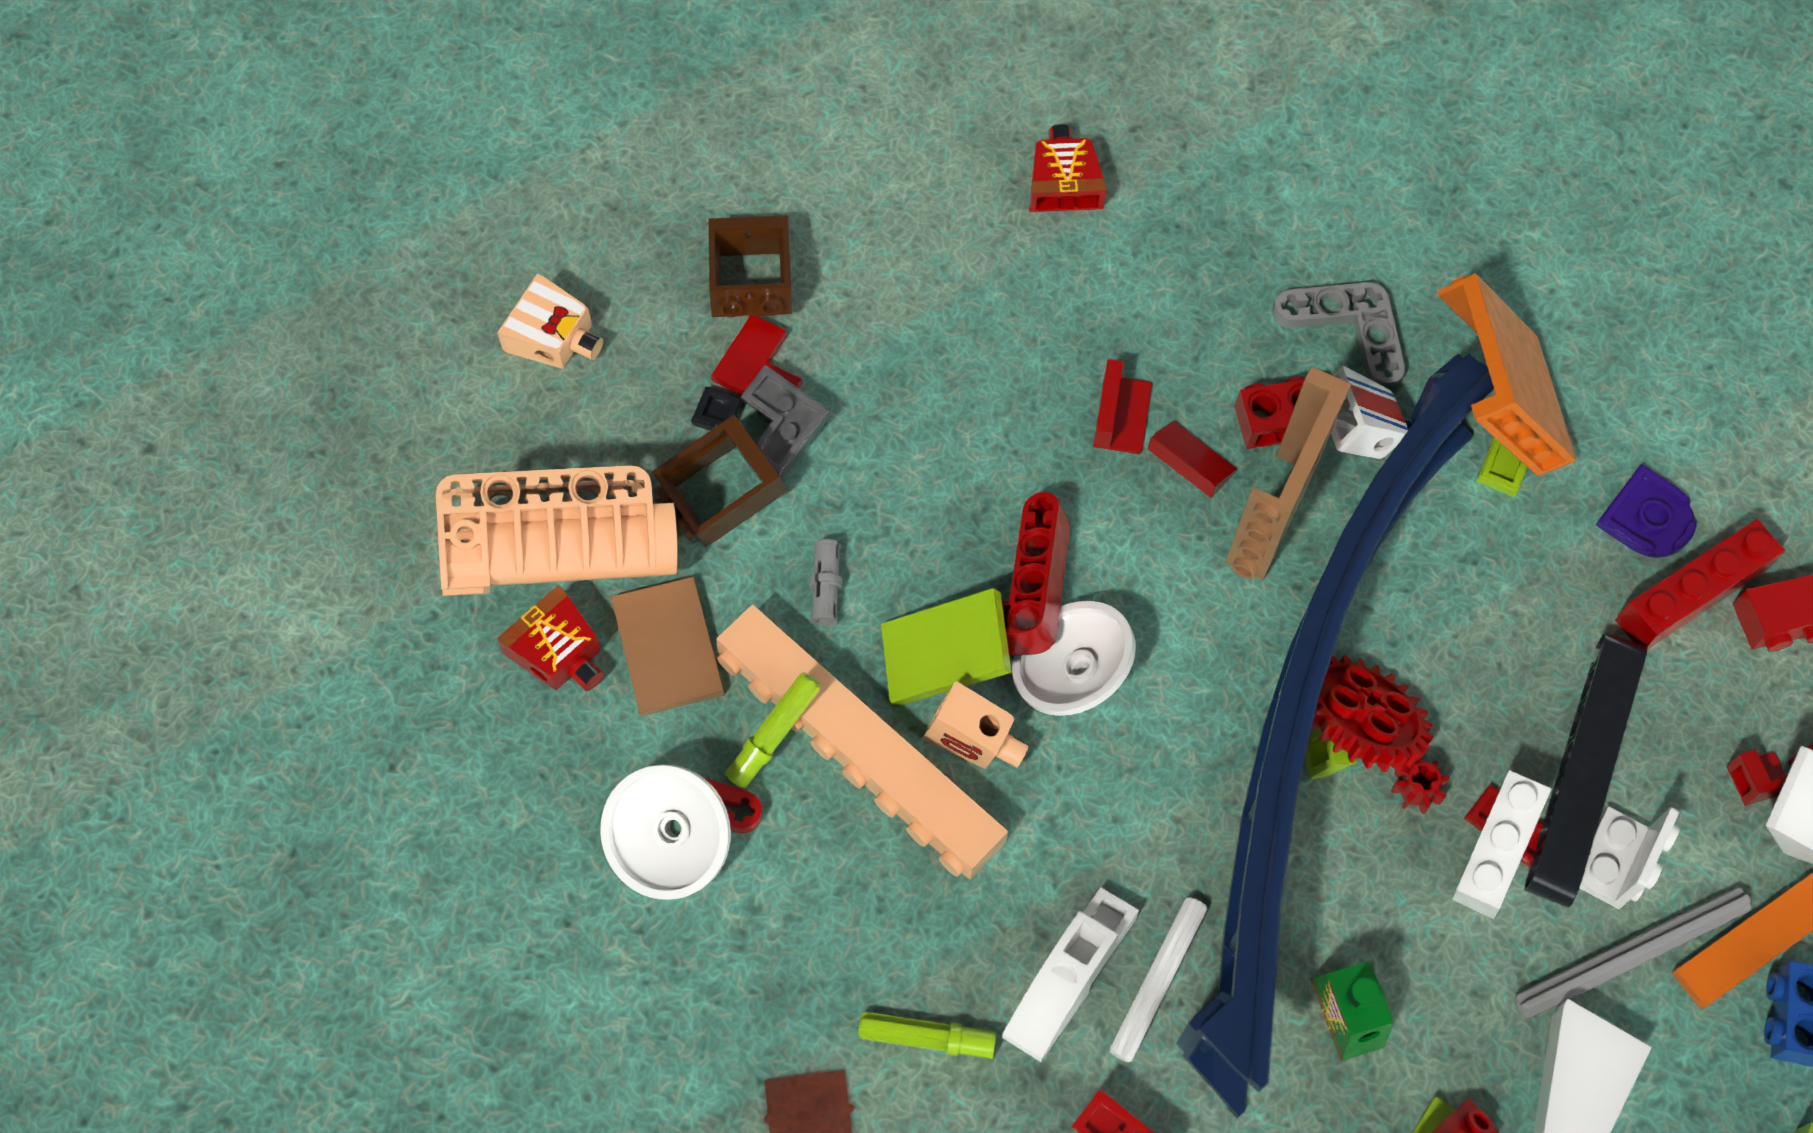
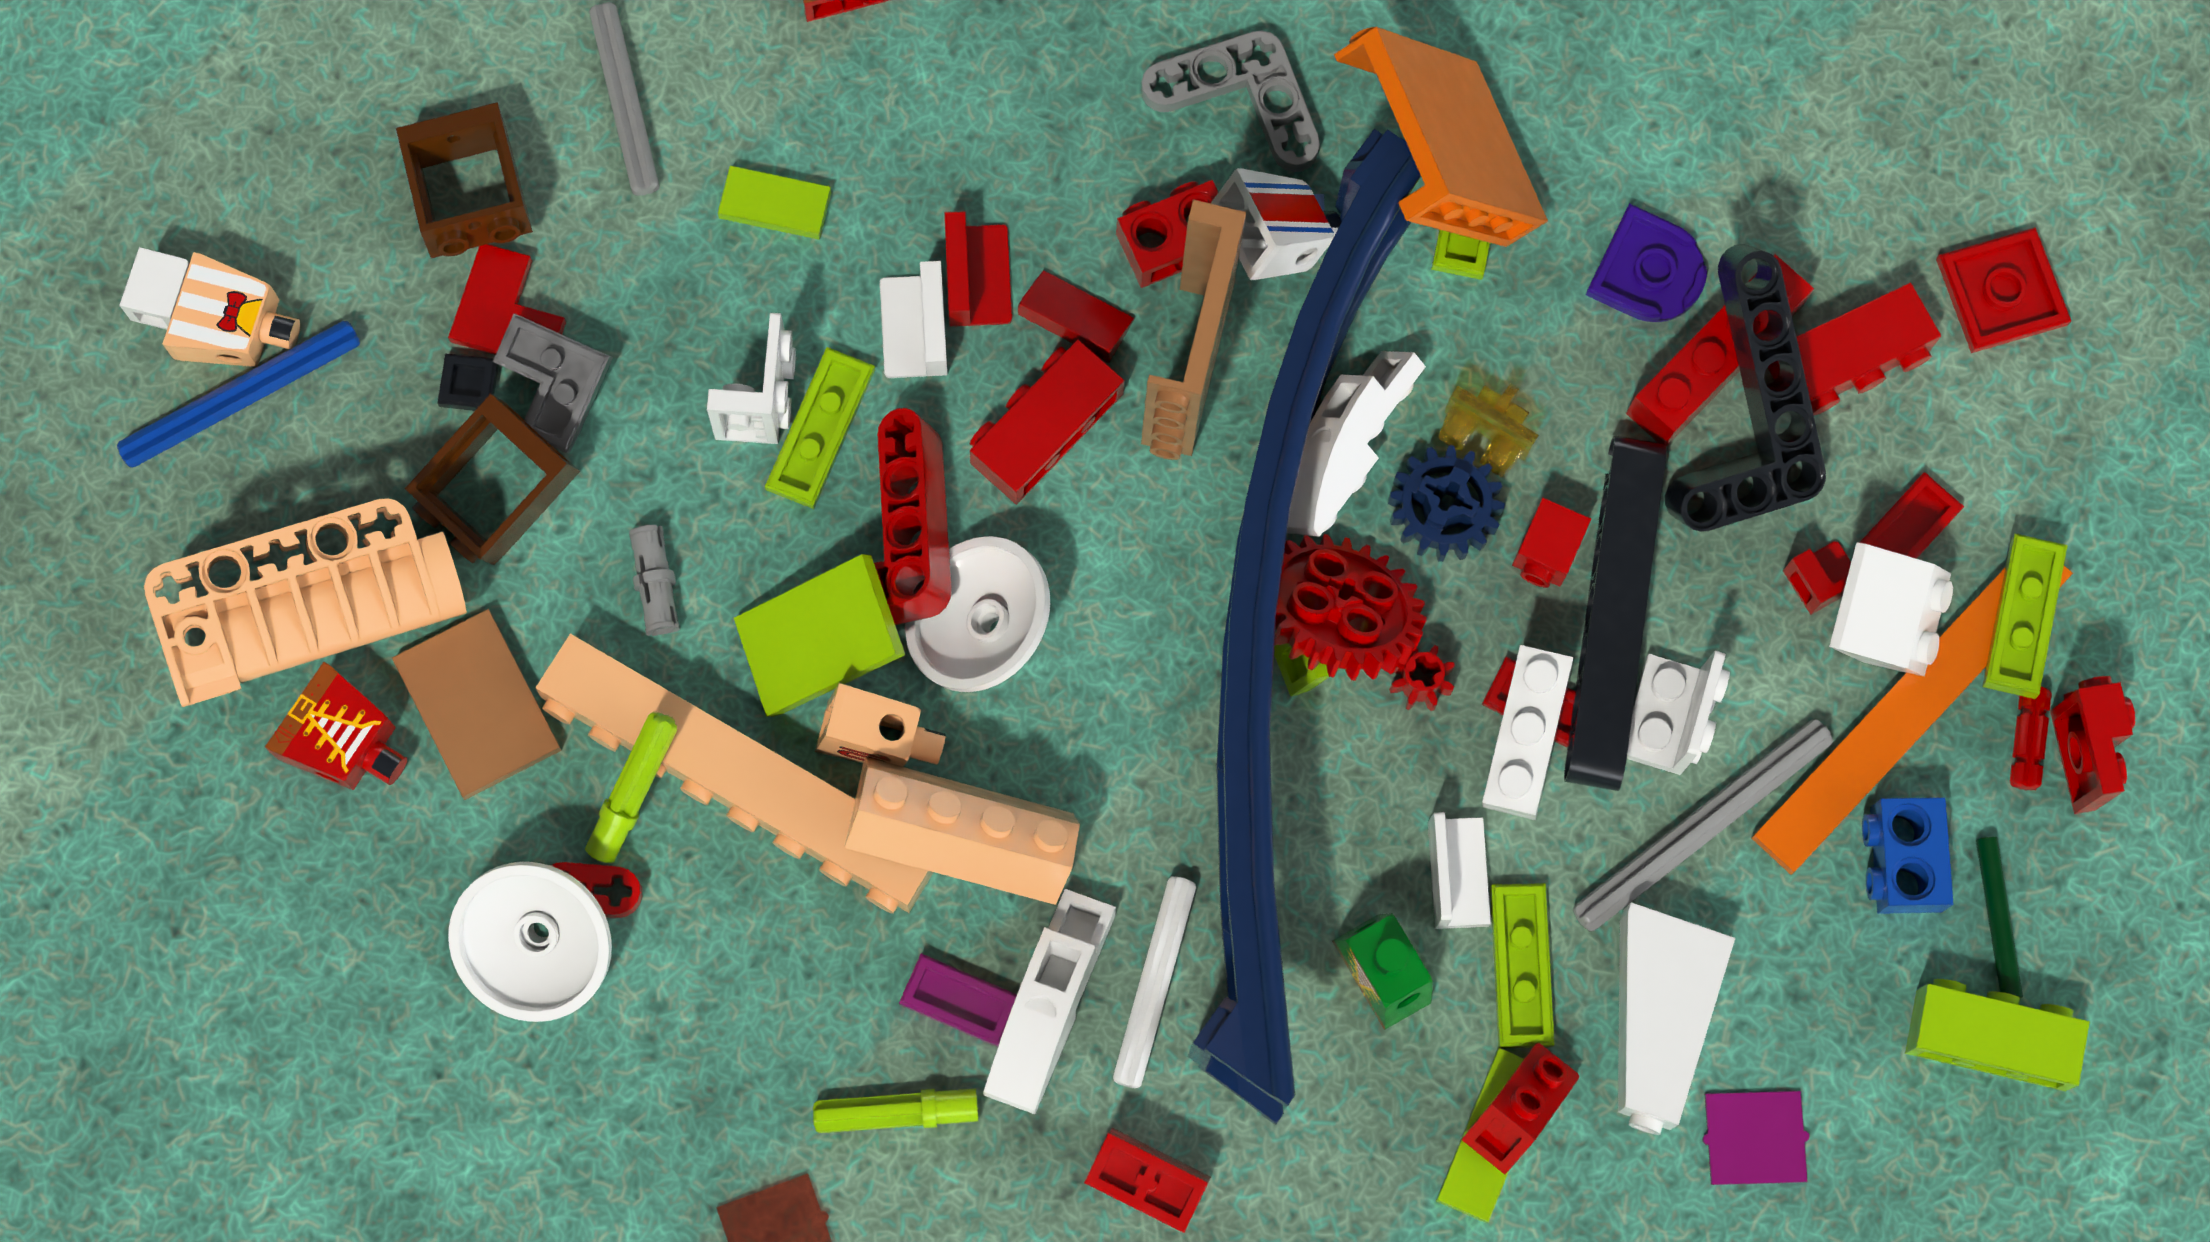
camera: 15 degrees left, 10 degrees up
(500, 294) = (153, 287): none -> white panel
(544, 383) = (238, 394): none -> blue axle
(881, 237) = (624, 99): none -> light grey axle
(932, 473) = (753, 416): none -> white bracket
(977, 499) = (820, 428): none -> lime tile
(978, 331) = (774, 202): none -> lime tile
(995, 957) = (958, 1000): none -> magenta tile
(1028, 822) = (962, 831): none -> light nougat slope
(1067, 438) = (914, 324): none -> white panel
(1154, 527) = (1045, 420): none -> red brick
(1385, 587) = (1336, 443): none -> white slope
(1424, 945) = (1458, 872): none -> white panel
(1450, 637) = (1428, 493): none -> dark blue gear
(1464, 1033) = (1522, 965): none -> lime tile
(1509, 600) = (1494, 418): none -> clear yellow hips
(1541, 703) = (1550, 544): none -> red brick
(1733, 626) = (1765, 406): none -> black beam

